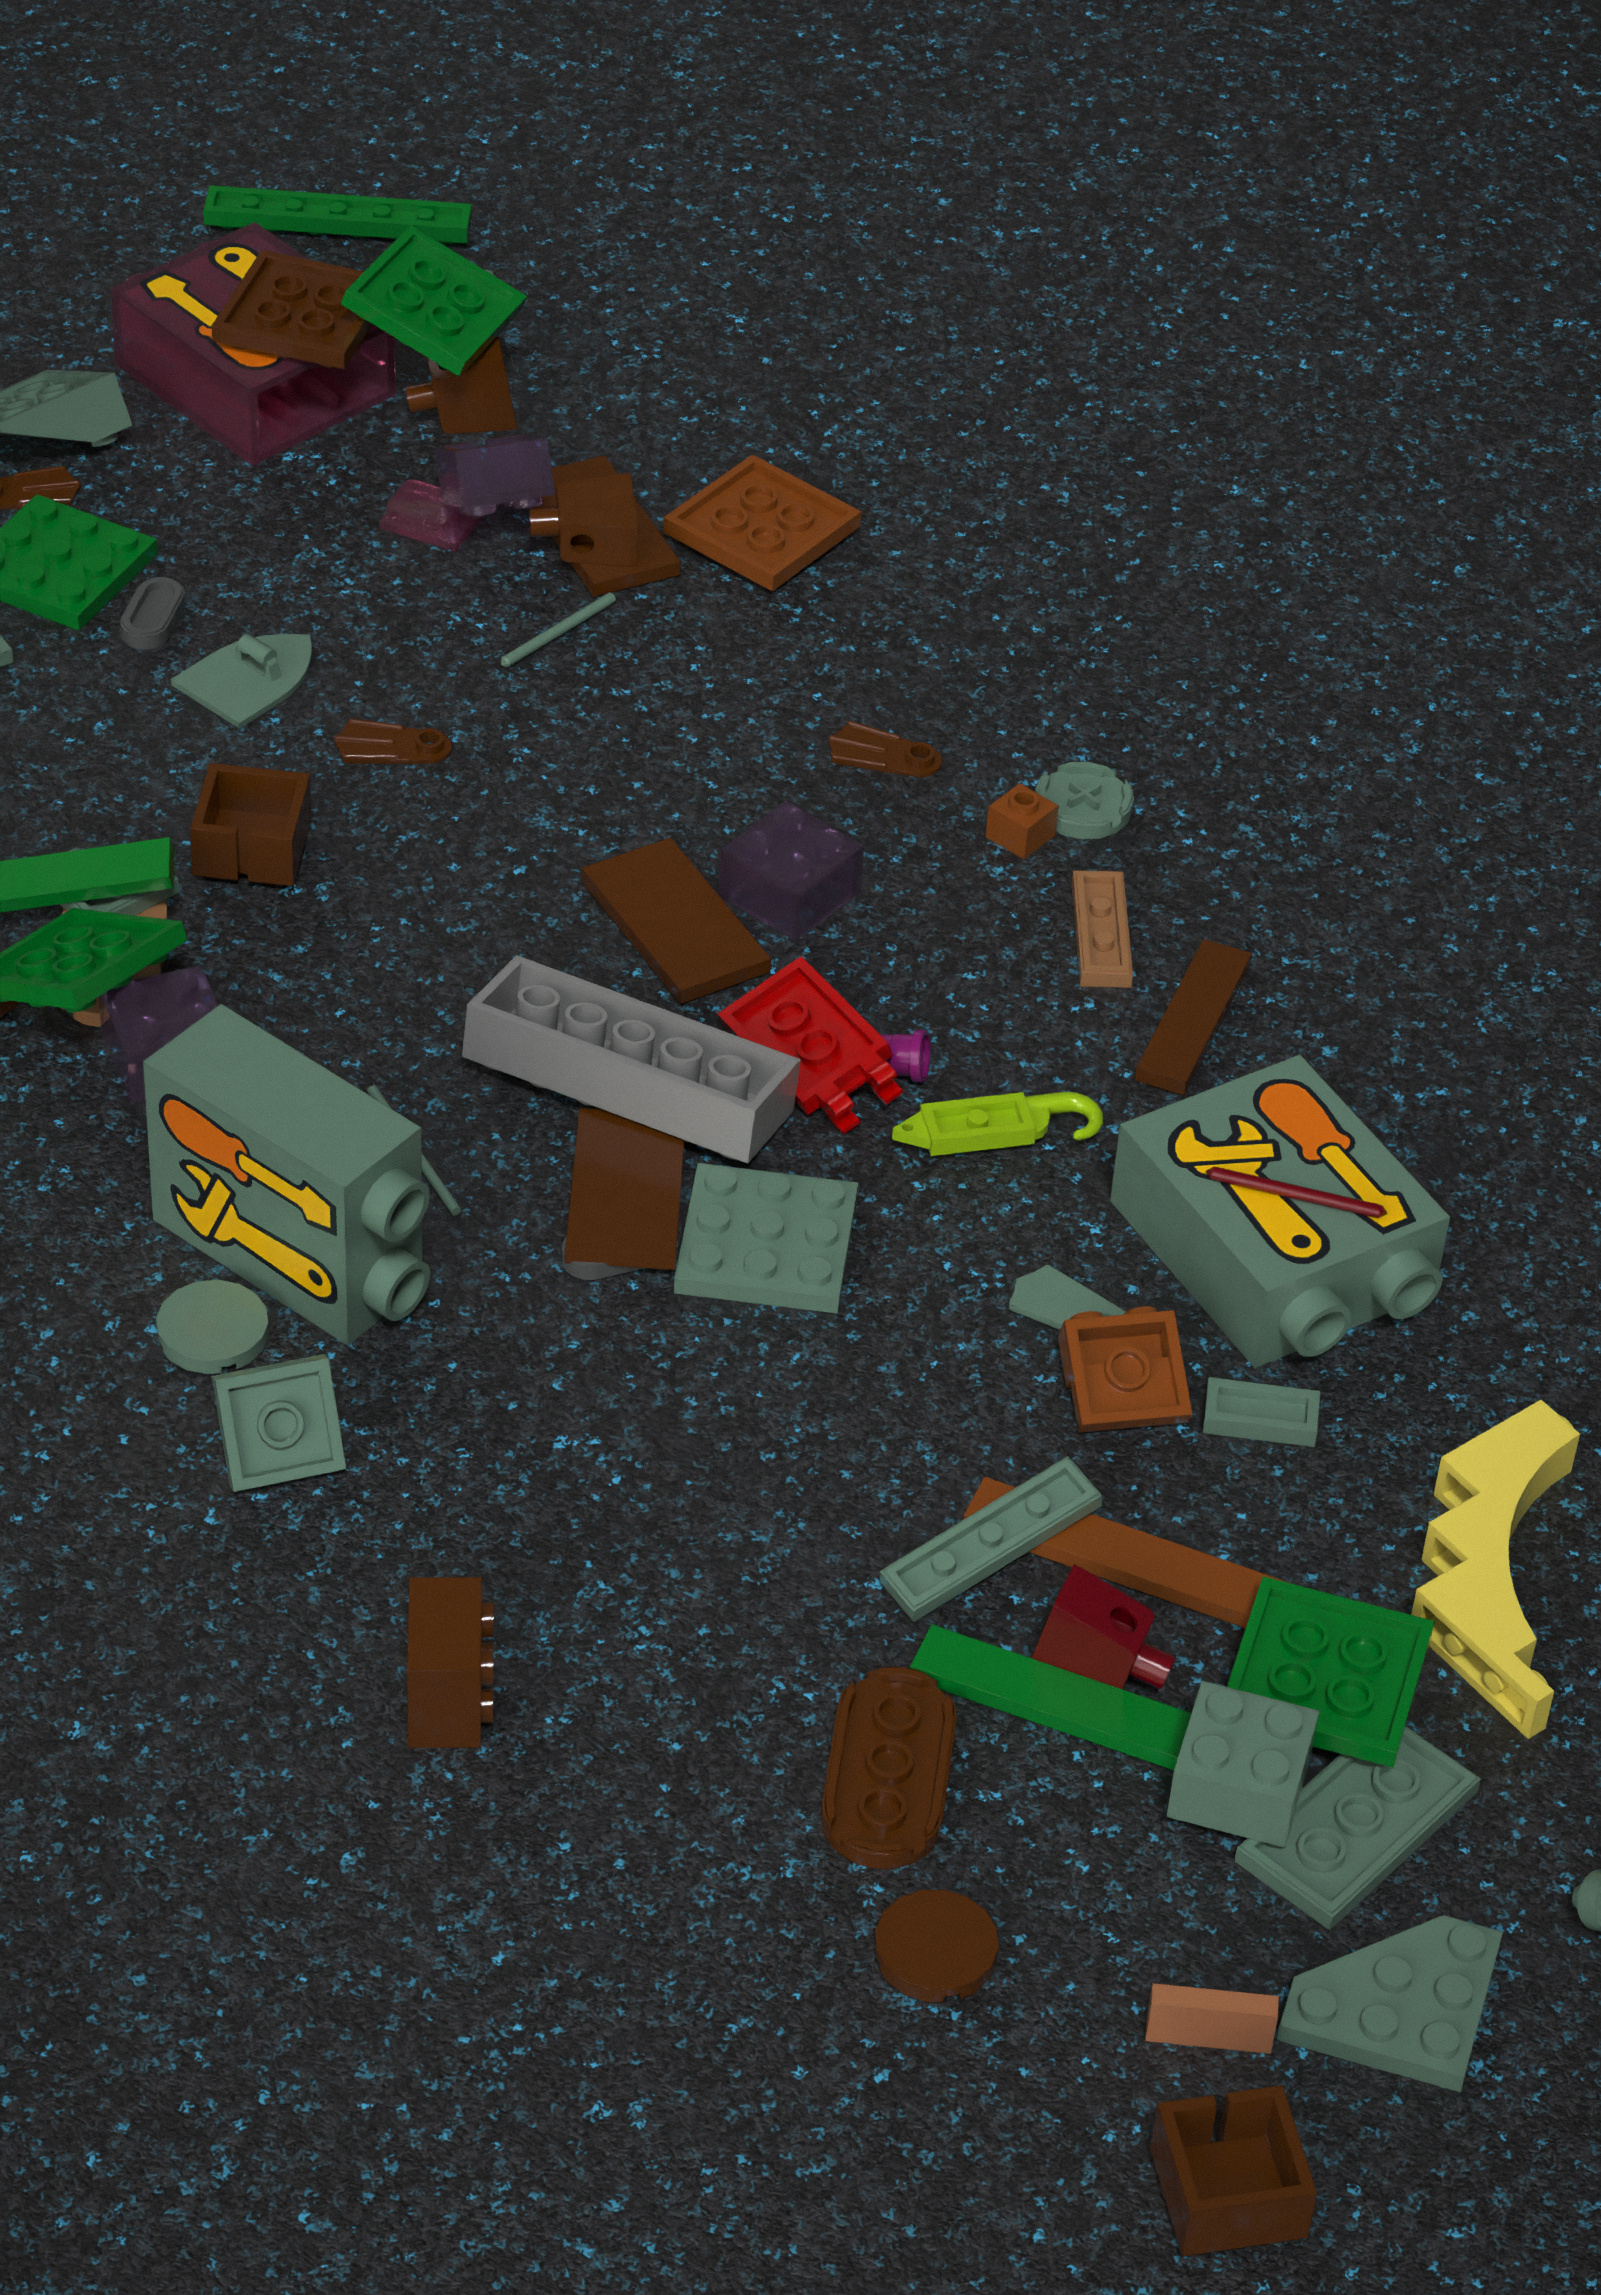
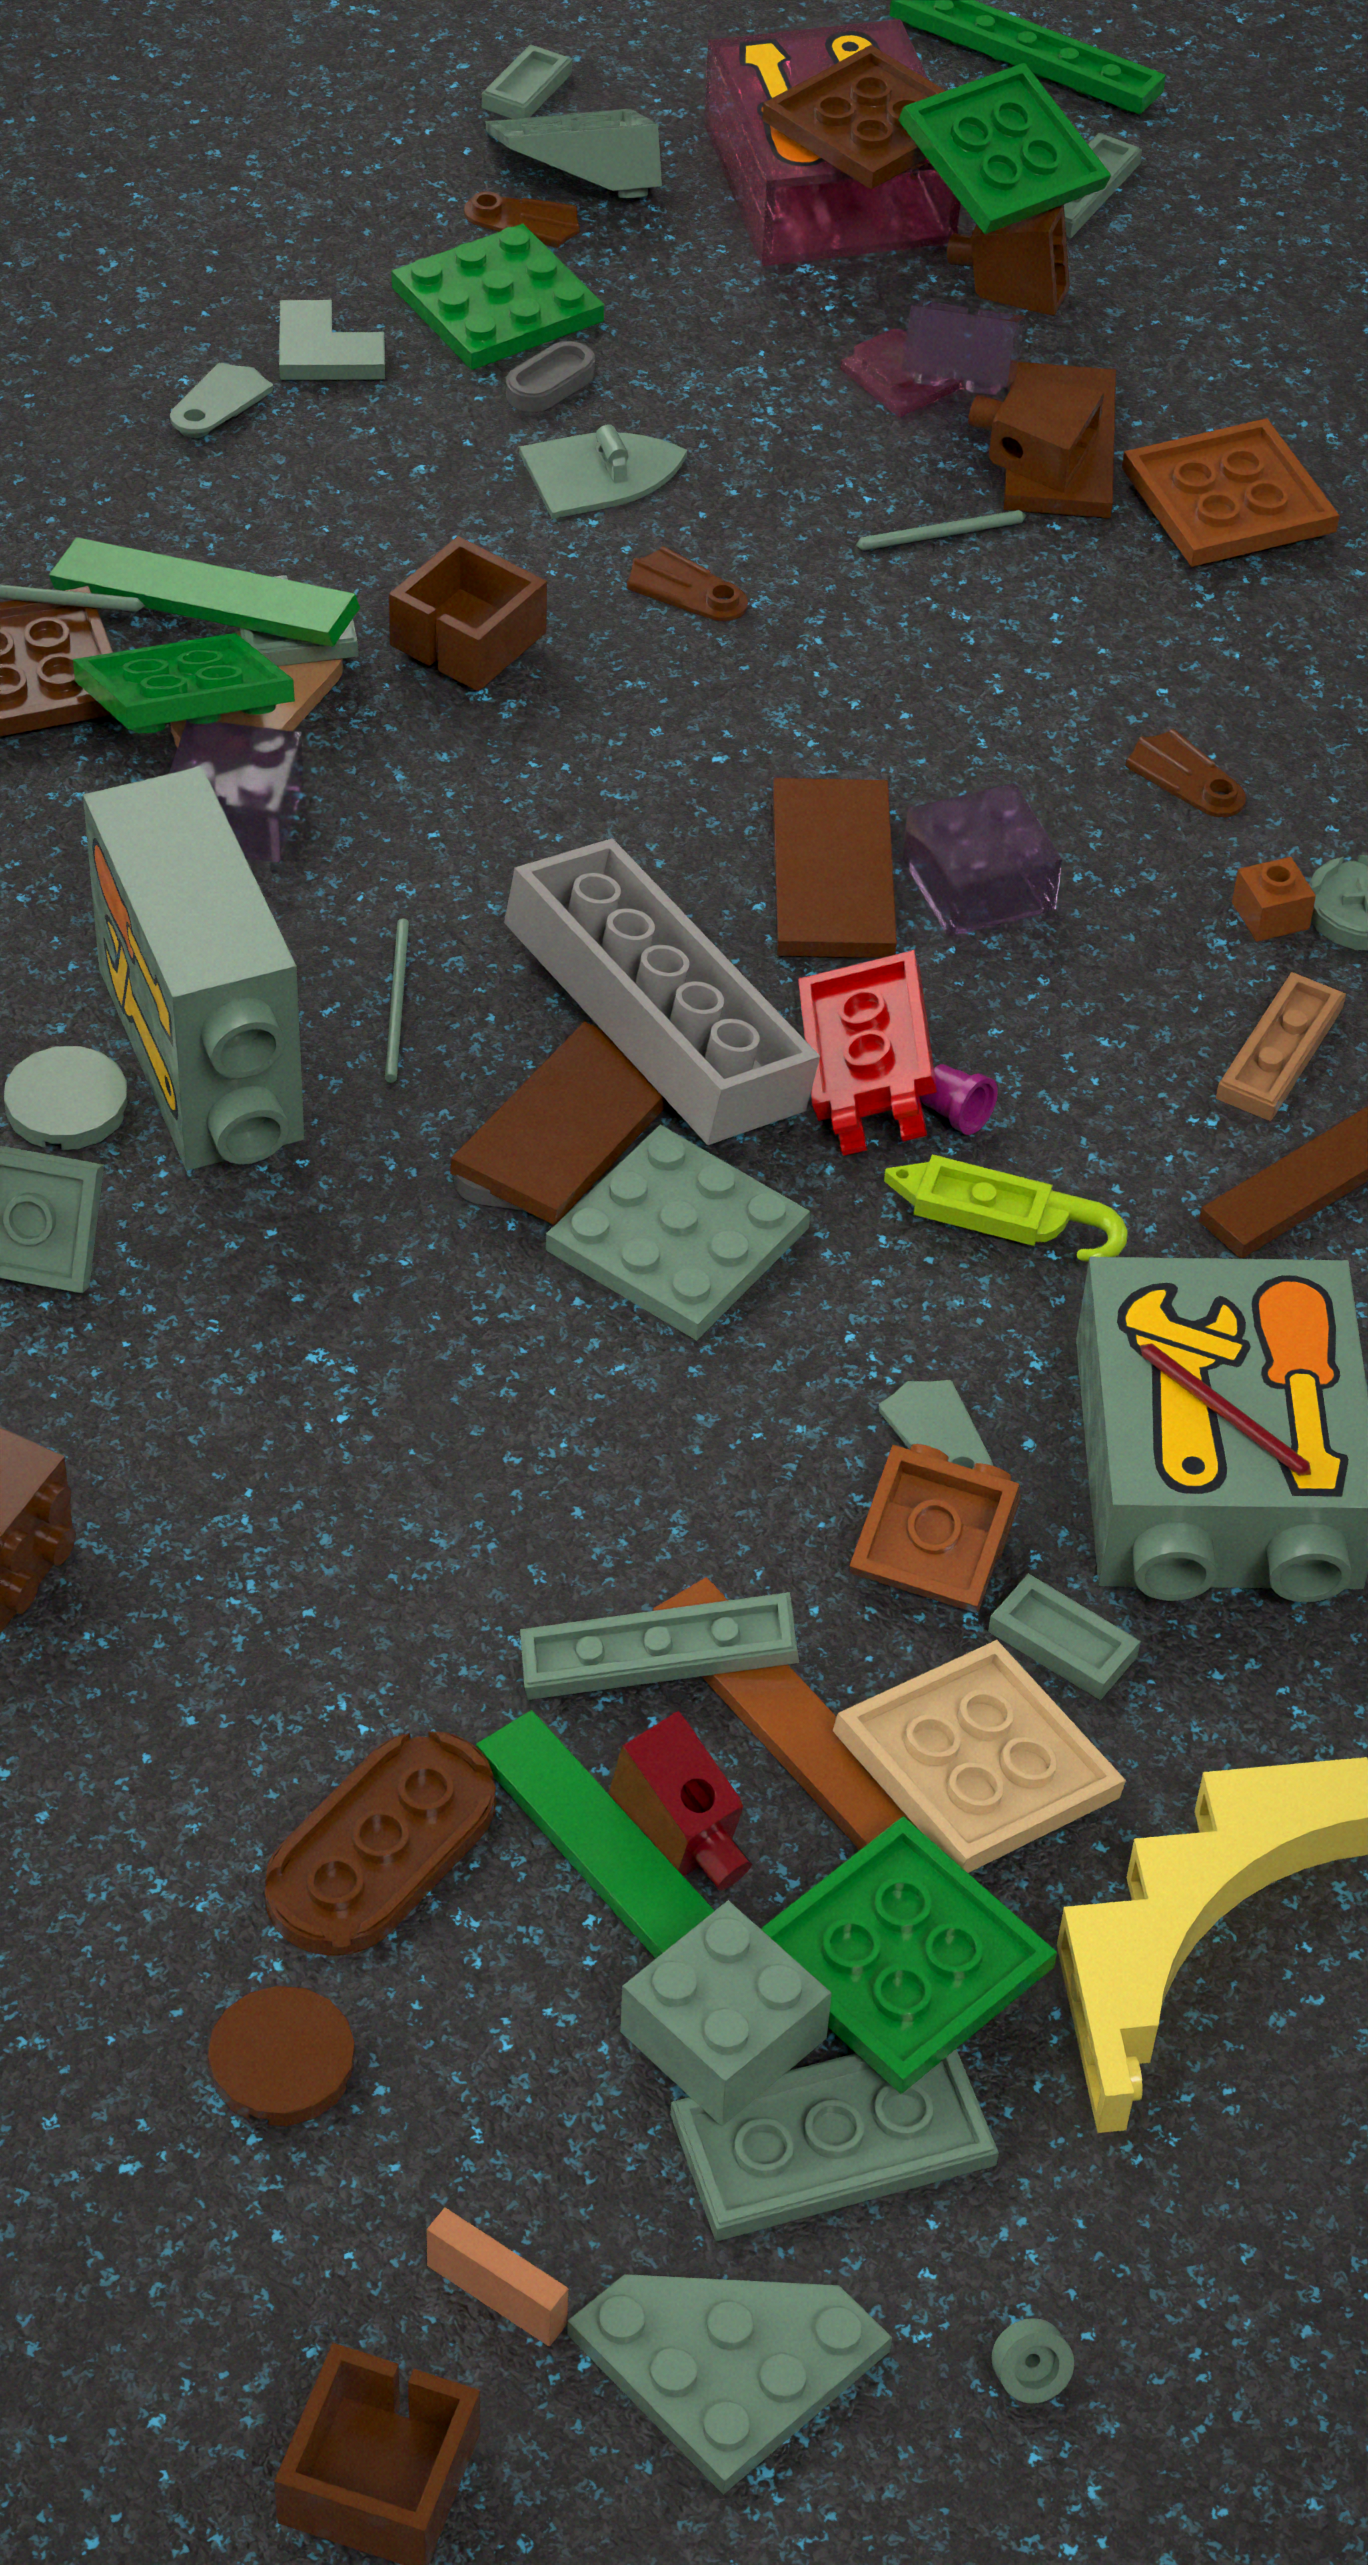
camera: 30 degrees right, 5 degrees up
(1273, 1515) = (979, 1756): none -> tan plate

